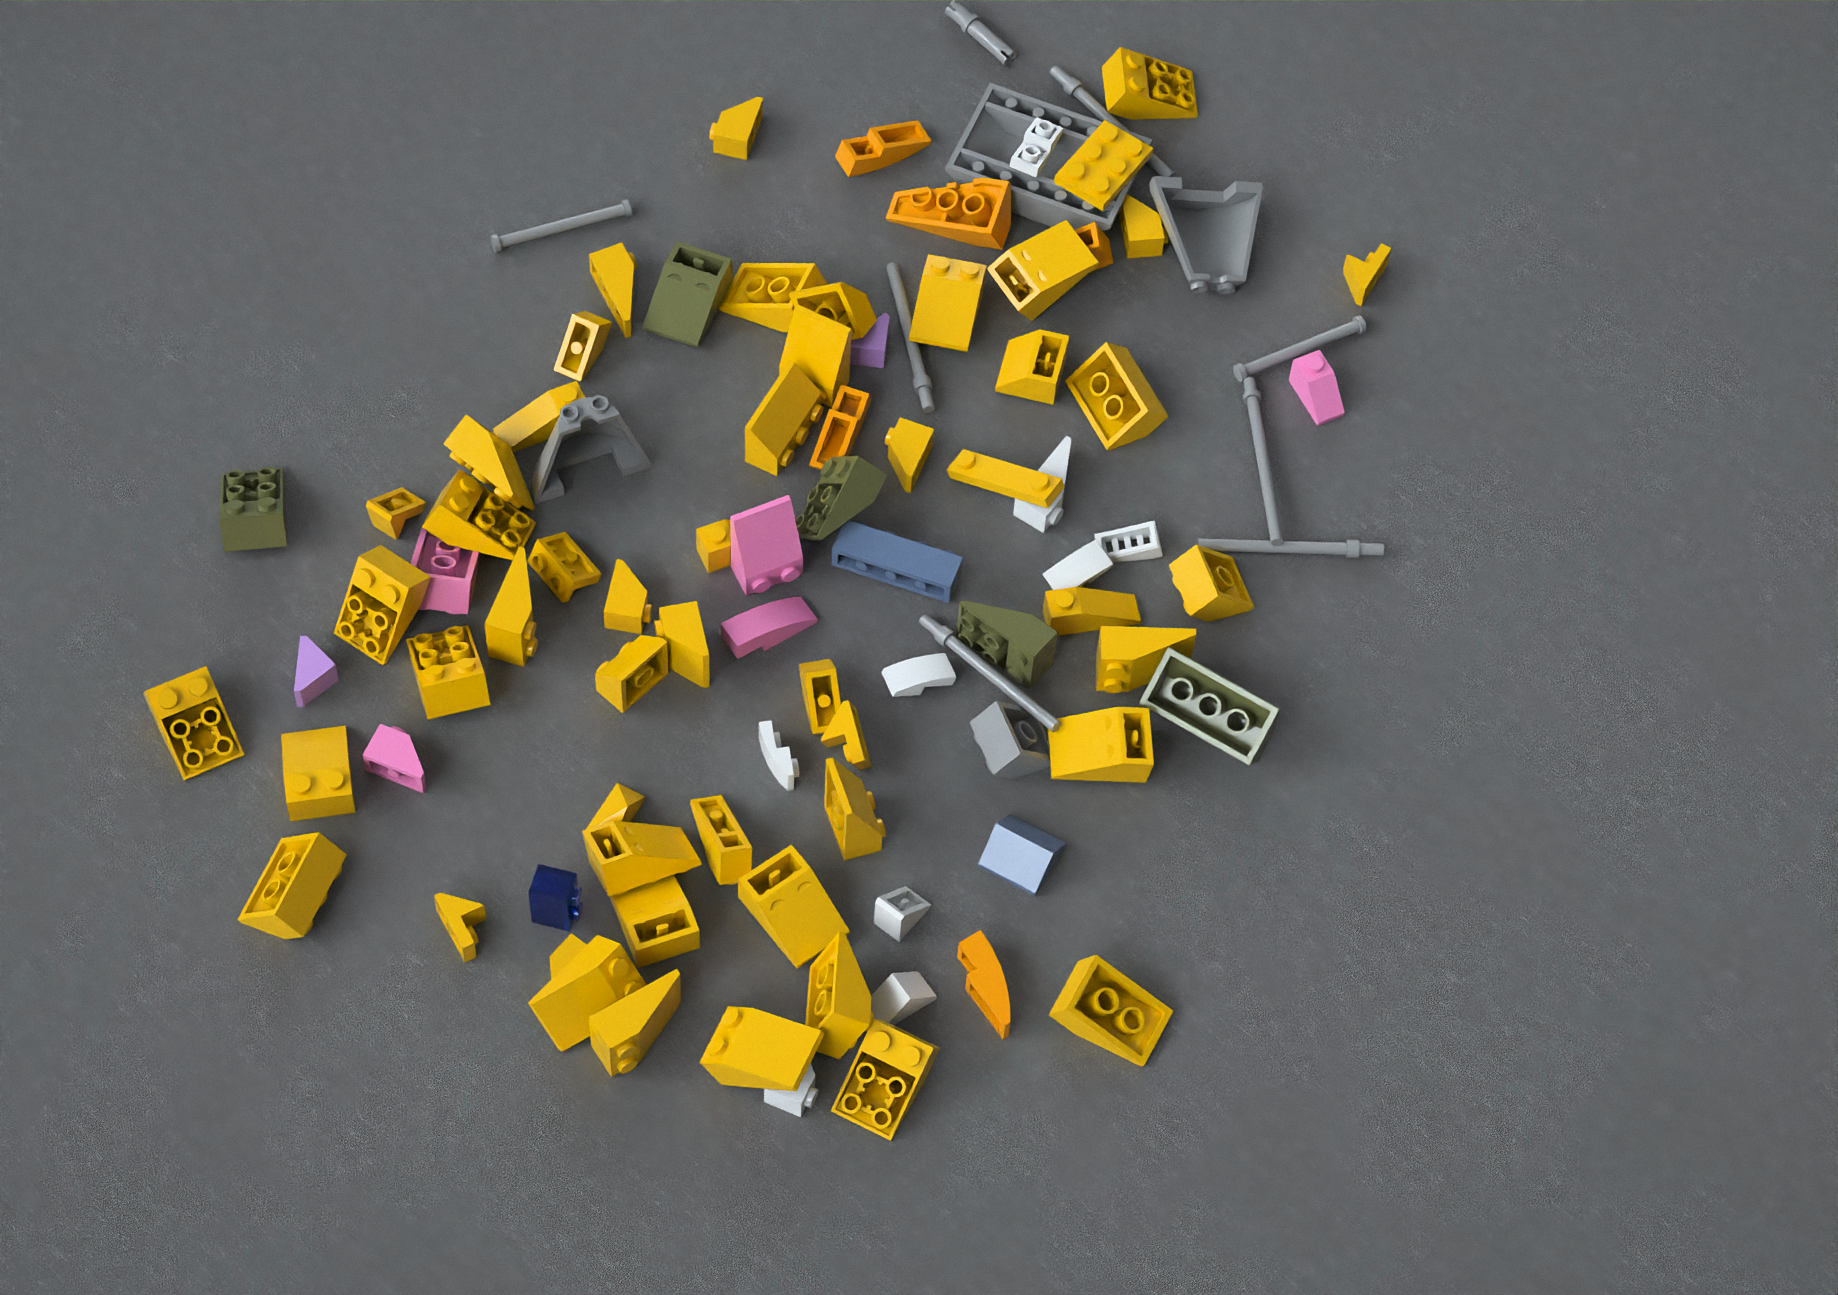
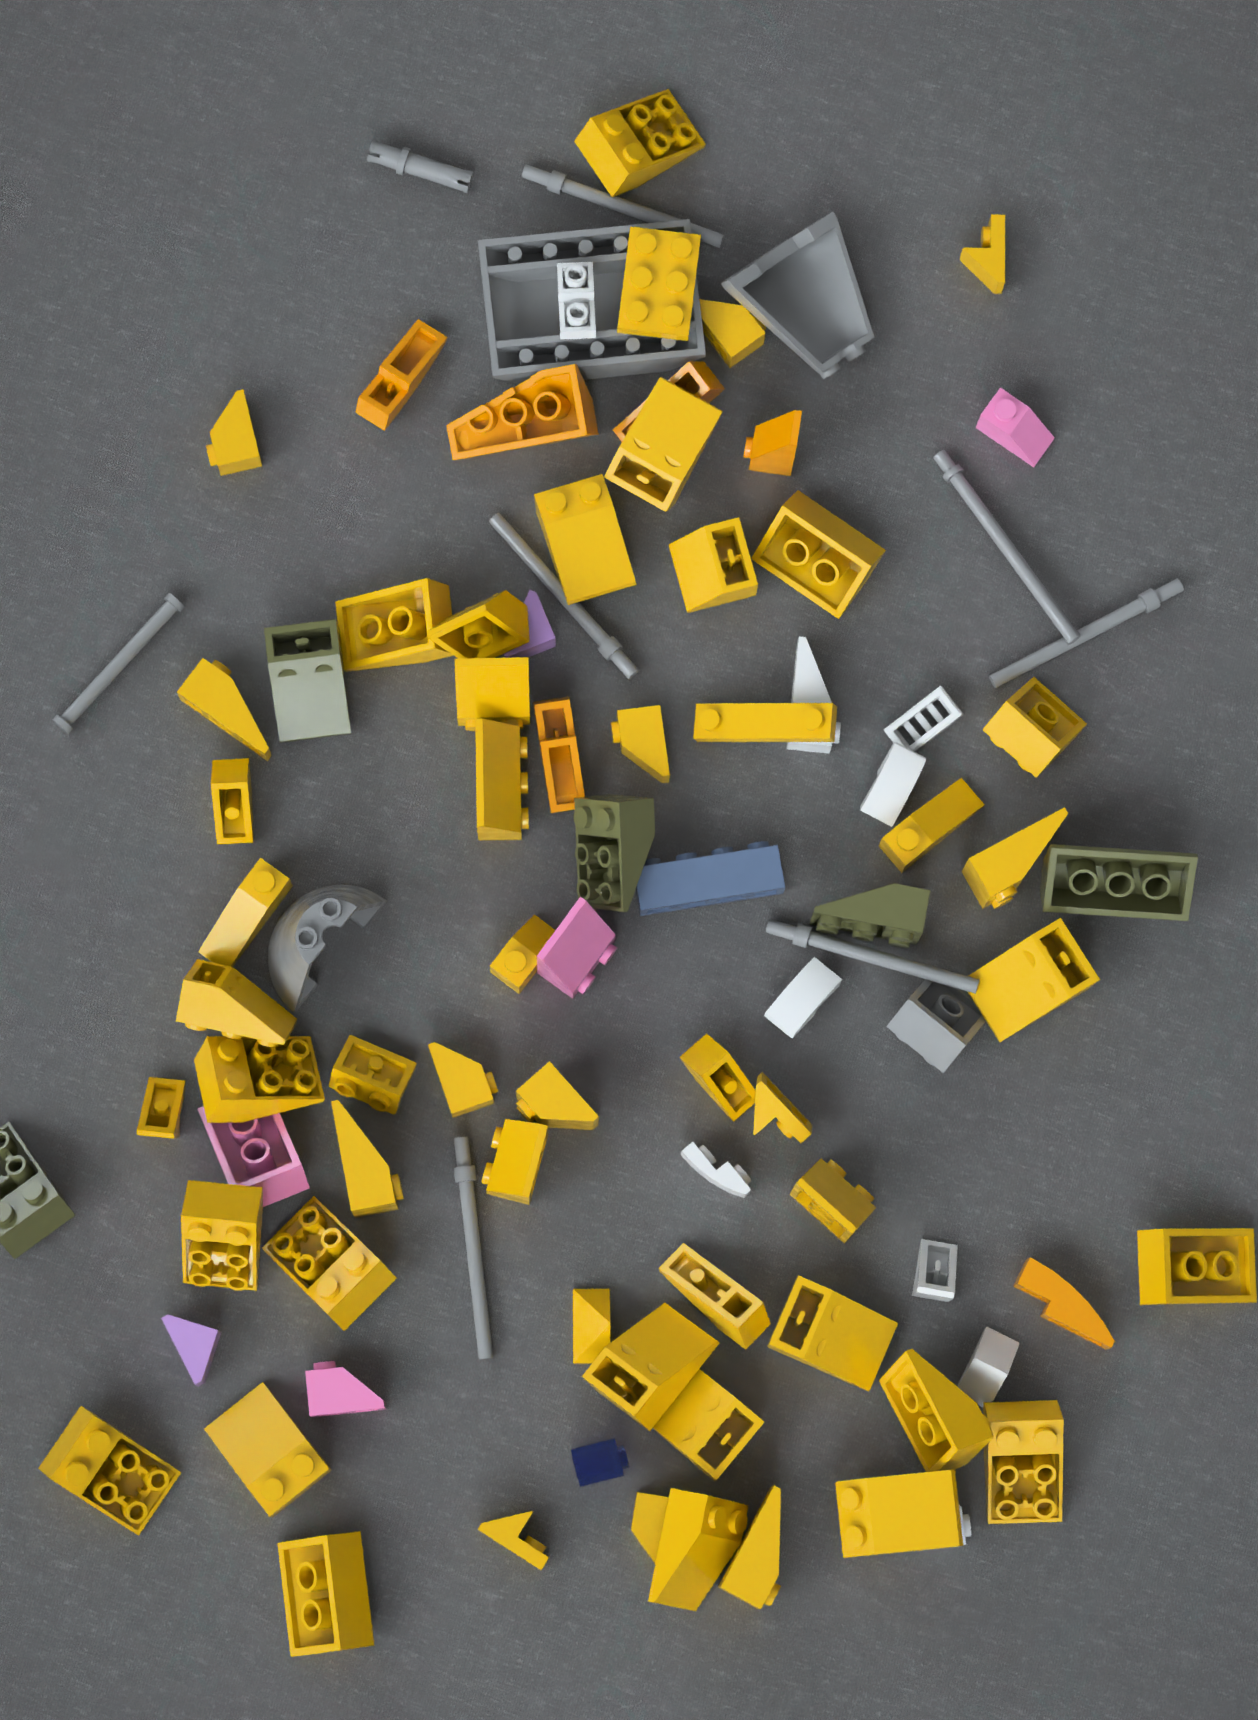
camera: 30 degrees left, 20 degrees up
(586, 667) = (465, 1175): none -> light grey bar
(766, 625) = (620, 1026): bright pink slope -> none
(1020, 854) = (1015, 1138): slope -> none
(1128, 310) = (774, 444): none -> light orange slope
(1356, 325) = (1012, 324): light grey bar -> none

